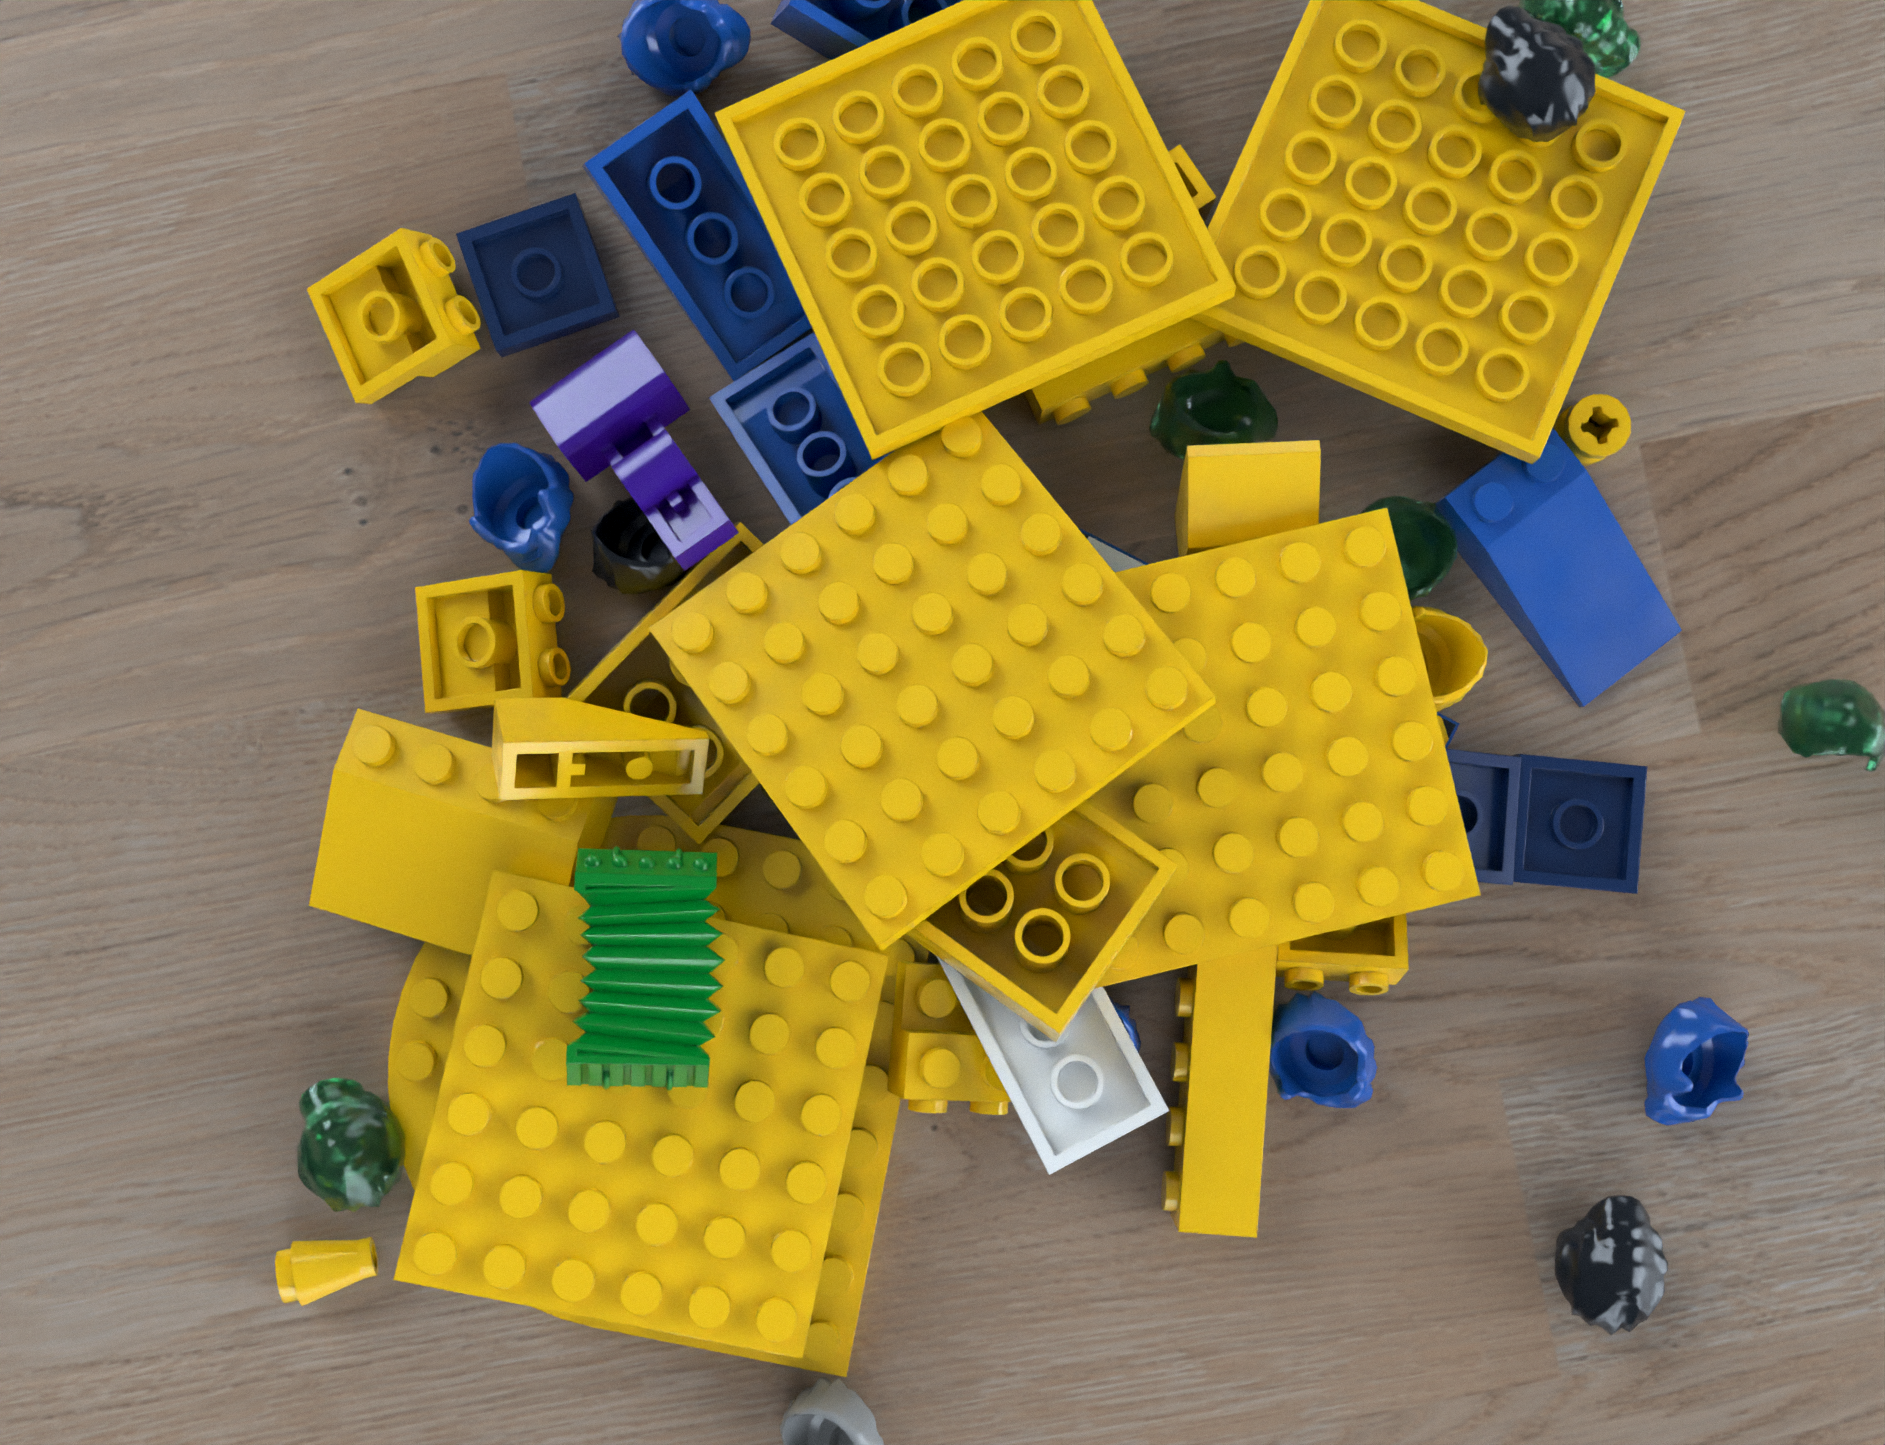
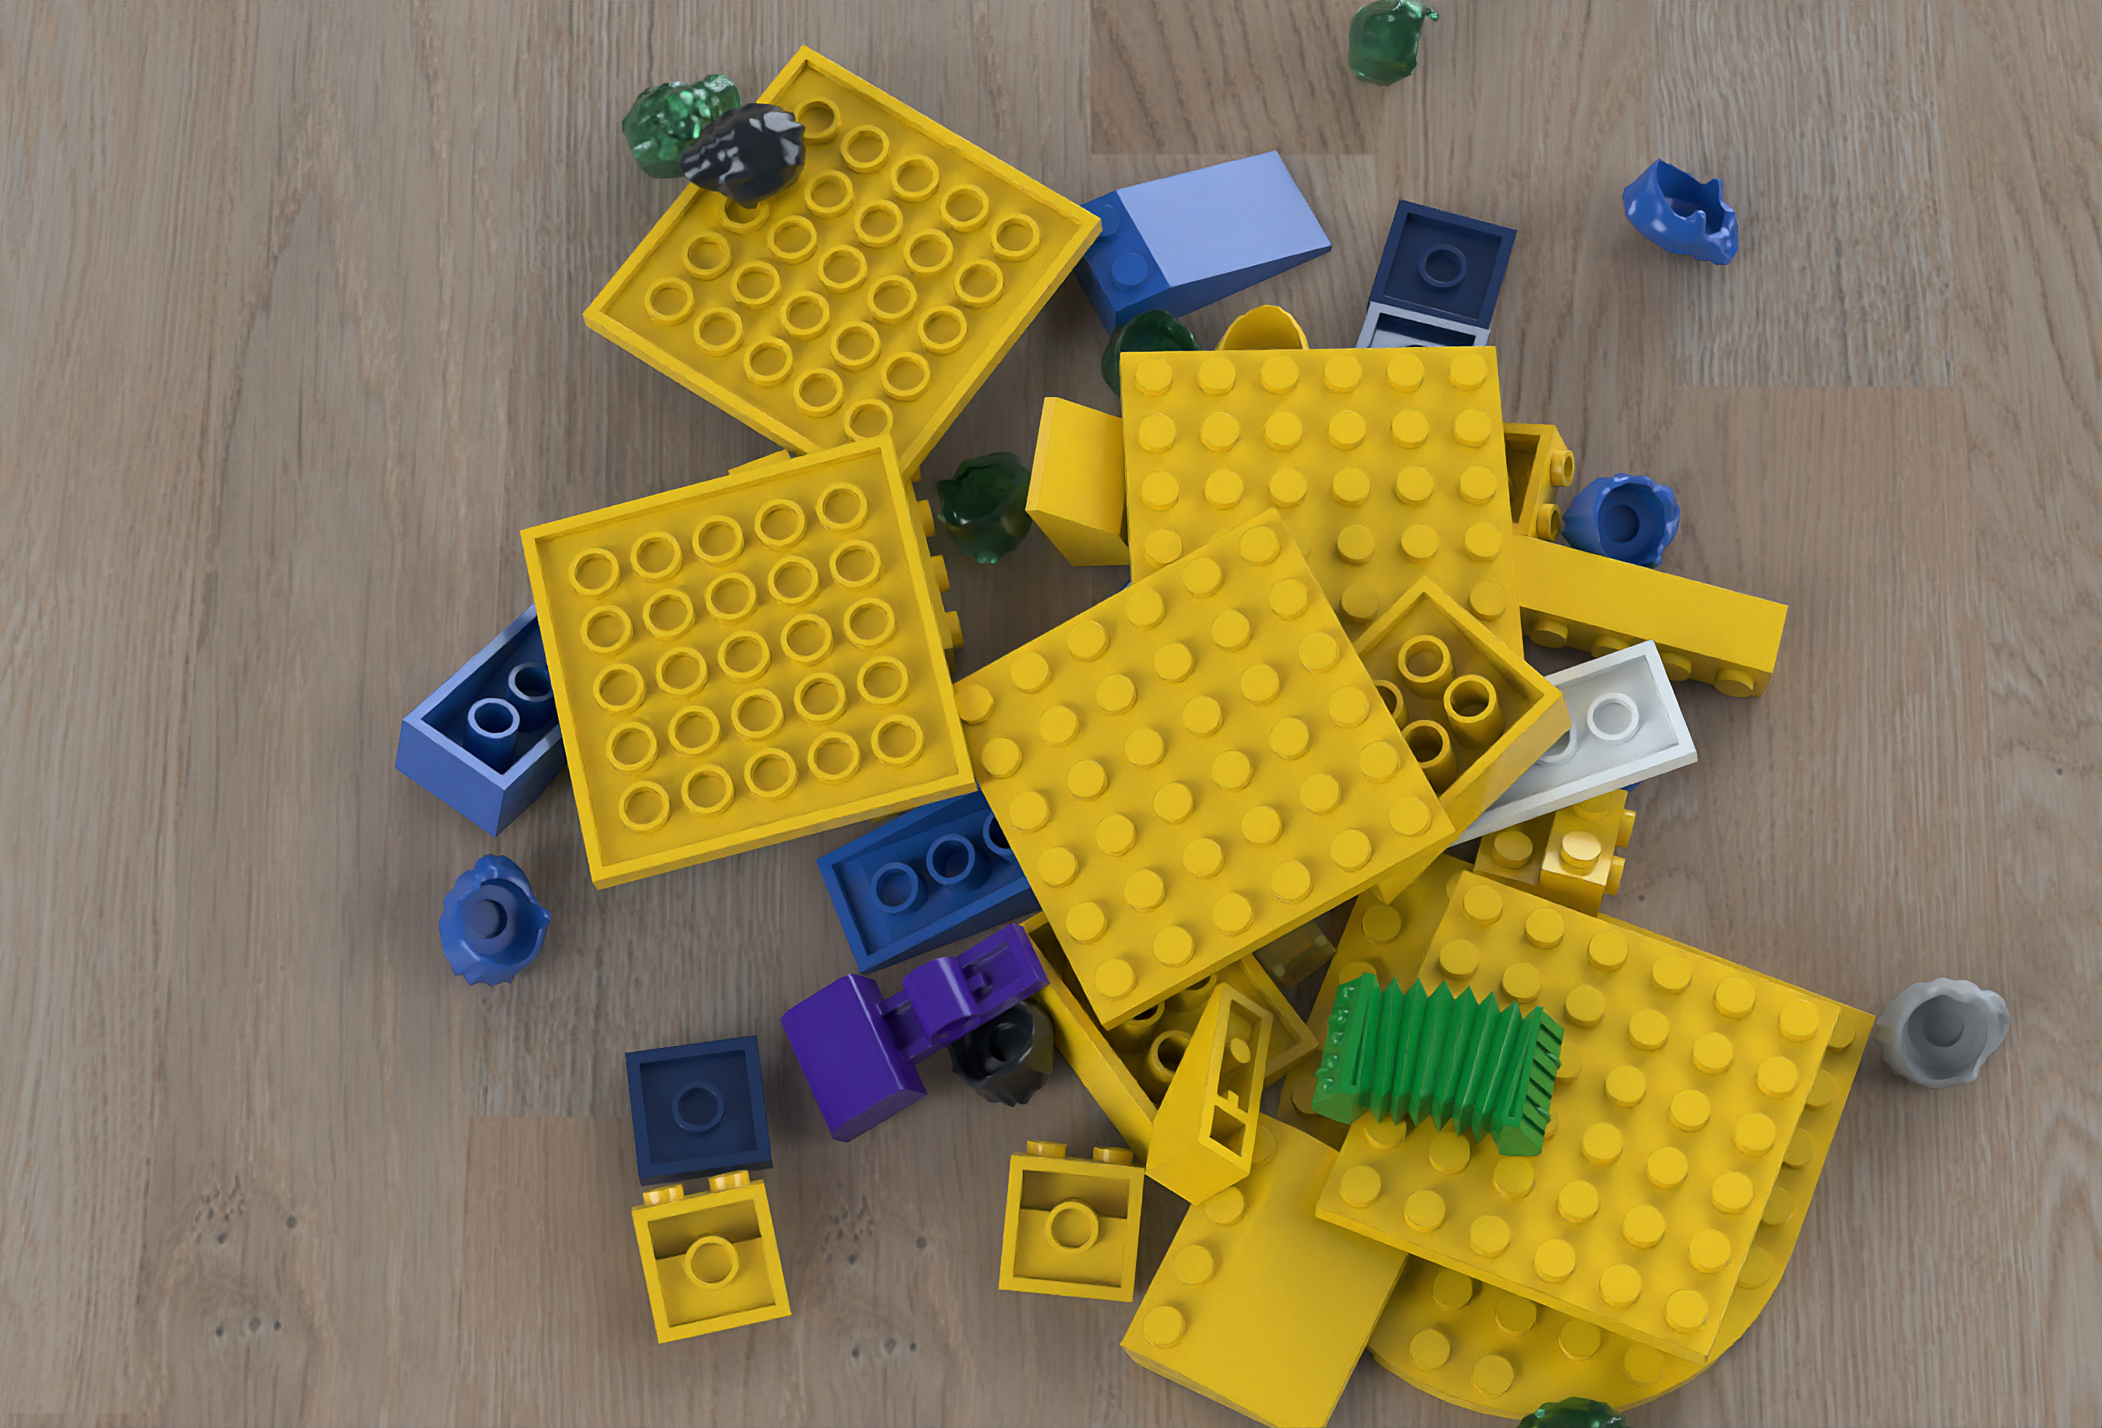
camera: 75 degrees left, 20 degrees down
(521, 504) = (940, 1160): blue hair -> none
(701, 233) = (693, 937): blue slope -> none
(1582, 435) = (1073, 166): yellow wheel -> none
(1612, 1265) = (1859, 317): black hair -> none

